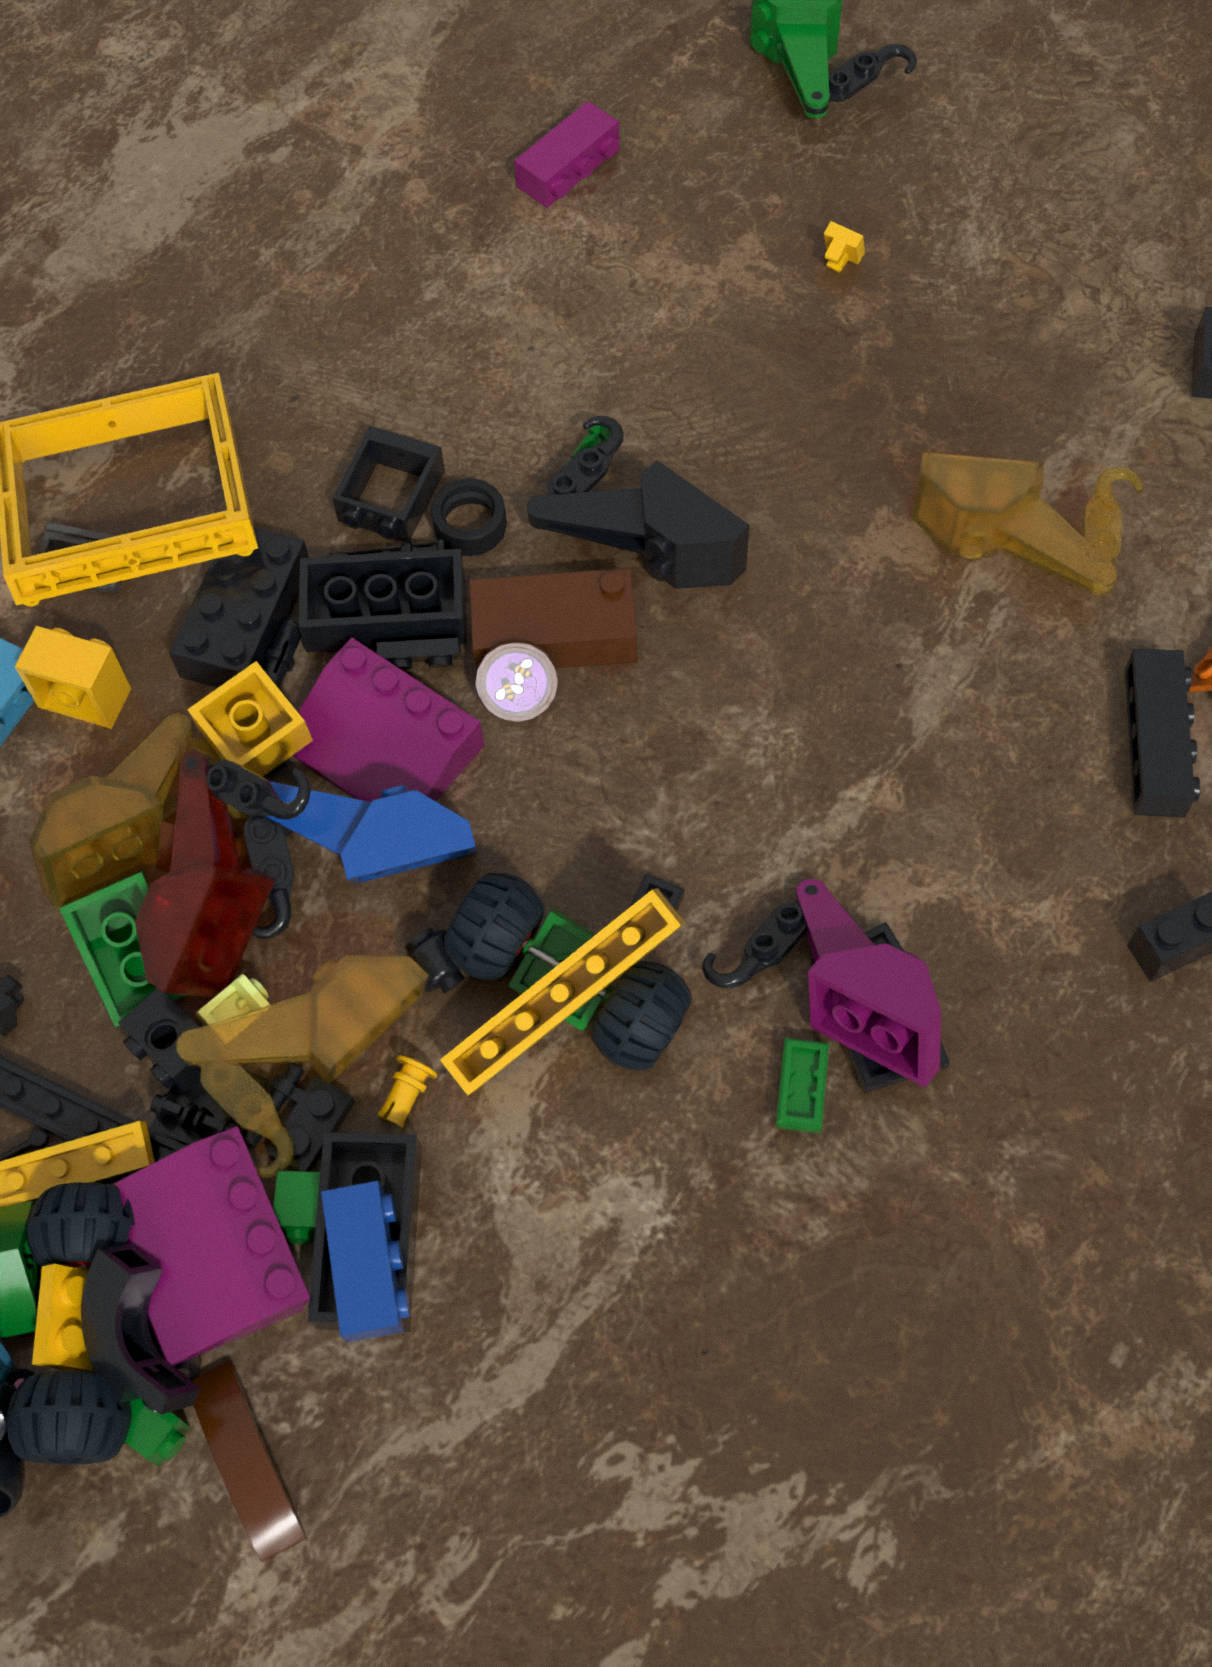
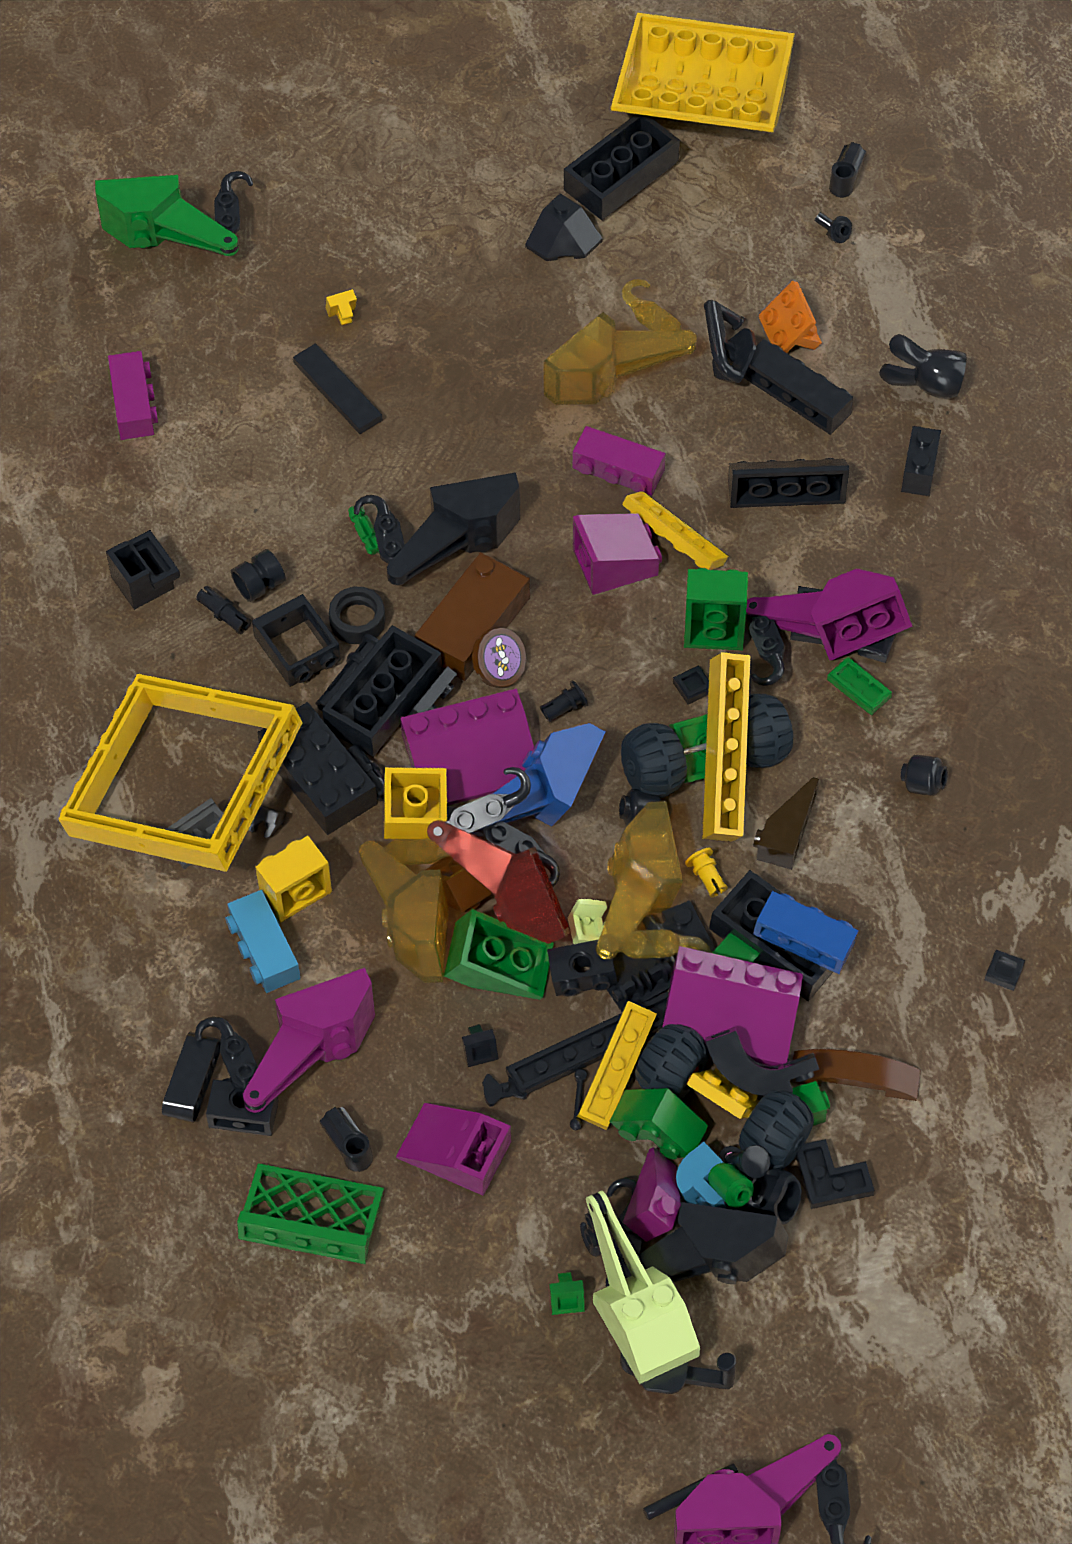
camera: 55 degrees left, 5 degrees down
(57, 1531) = (829, 1184): none -> black plate
(149, 604) = (271, 817): none -> black tile
(358, 296) = (142, 569): none -> black plate
(379, 397) = (223, 609): none -> black pin
(438, 397) = (259, 574): none -> black wheel
(521, 786) = (567, 700): none -> black pin
(527, 1547) = (1004, 970): none -> black tile
(529, 1138) = (785, 828): none -> dark brown slope
(732, 1249) = (924, 775): none -> black head
(740, 314) = (337, 388): none -> black tile
(751, 848) = (715, 609): none -> green brick
(757, 695) = (614, 550): none -> magenta slope
(843, 742) = (676, 531): none -> yellow plate
(885, 623) = (618, 460): none -> magenta brick
(1014, 810) = (788, 483): none -> black slope
(1121, 631) = (732, 355): none -> black piece
(1136, 370) = (563, 231): none -> black slope

